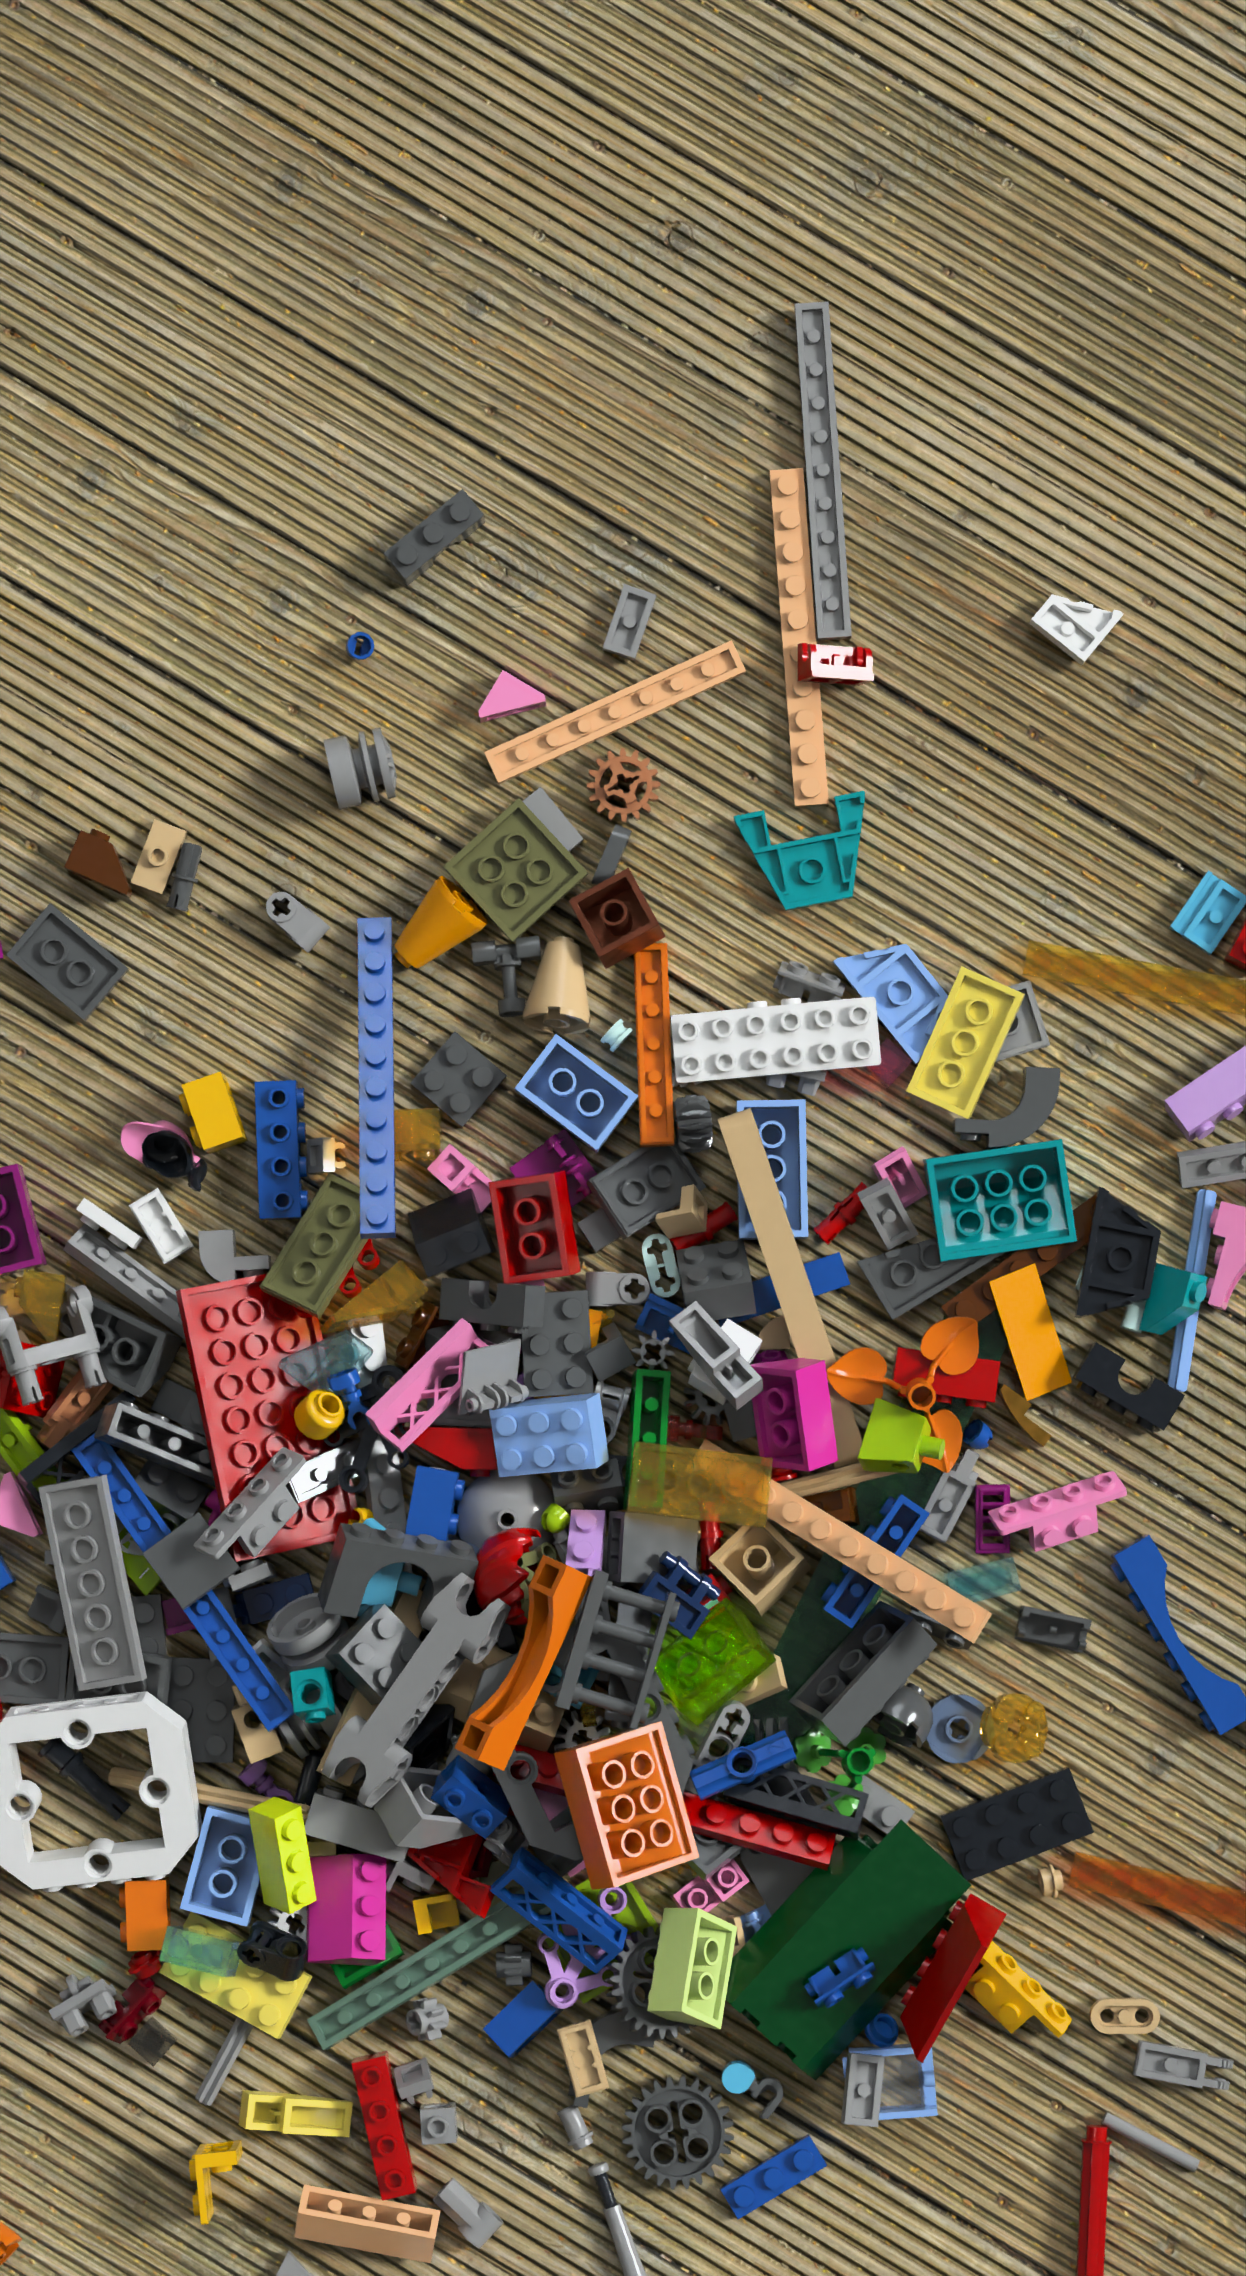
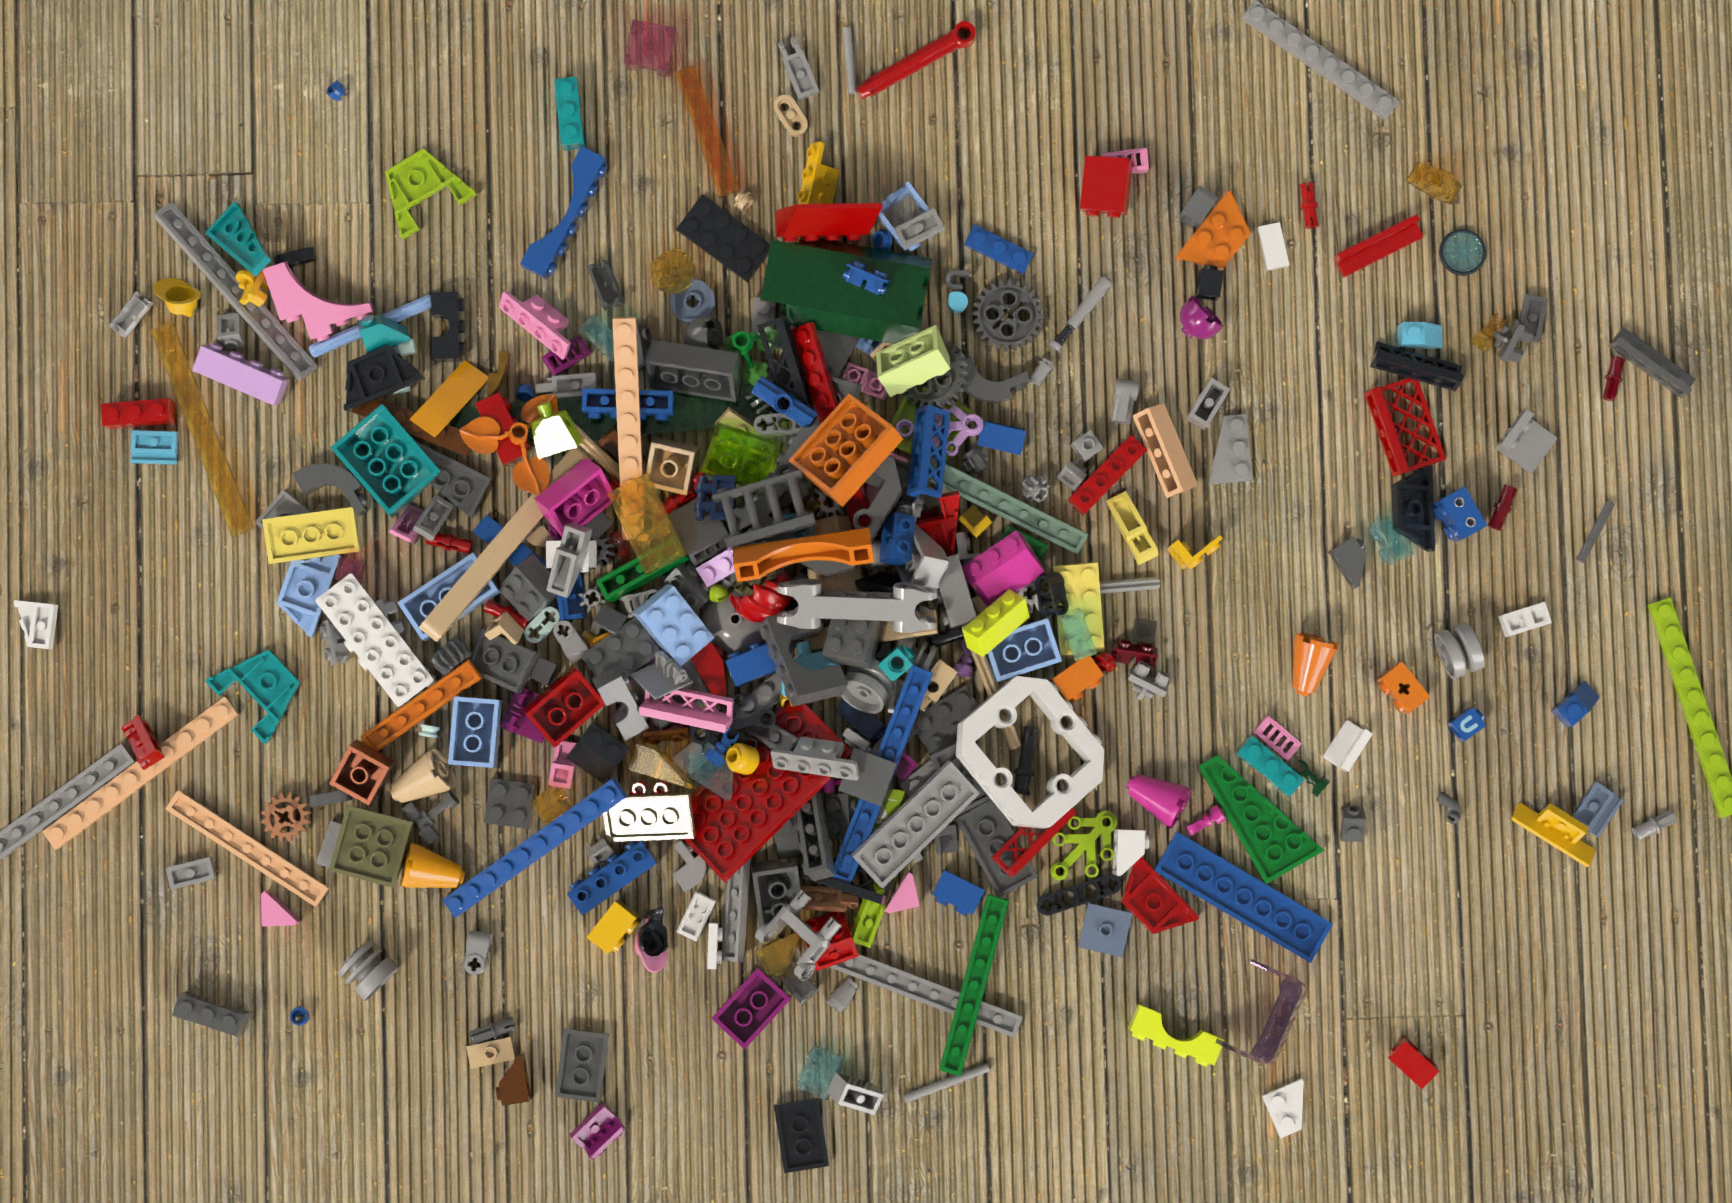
camera: 125 degrees left, 0 degrees up
(583, 2058) = (1000, 390): tan plate -> none

